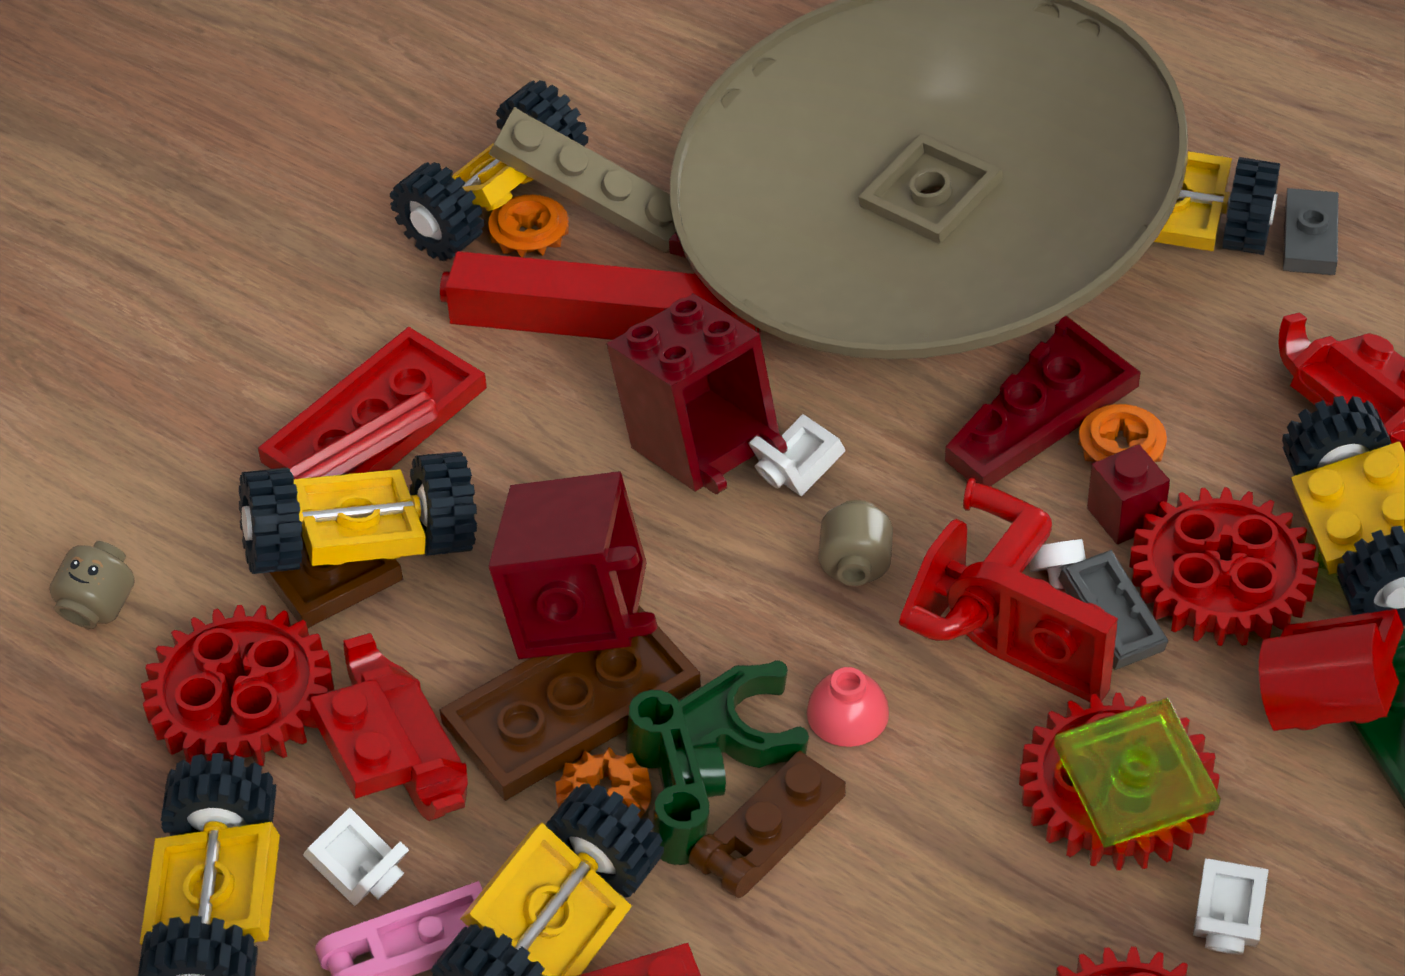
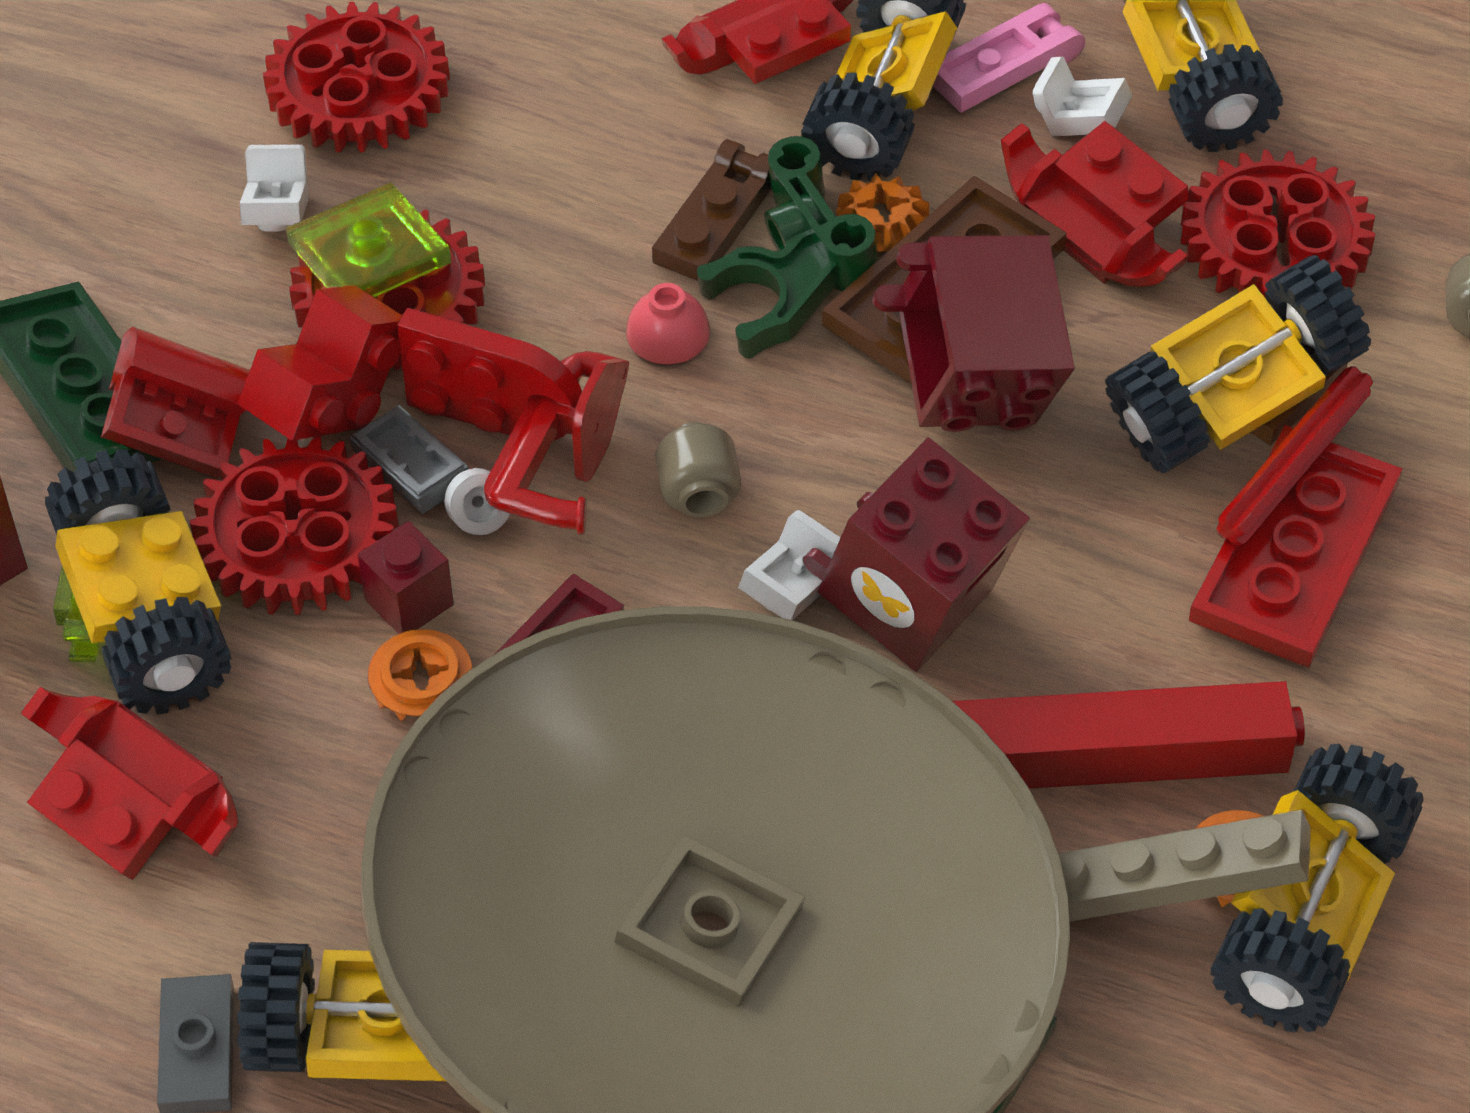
camera: 165 degrees right, 5 degrees up
(1193, 649) = (332, 373): none -> red brick

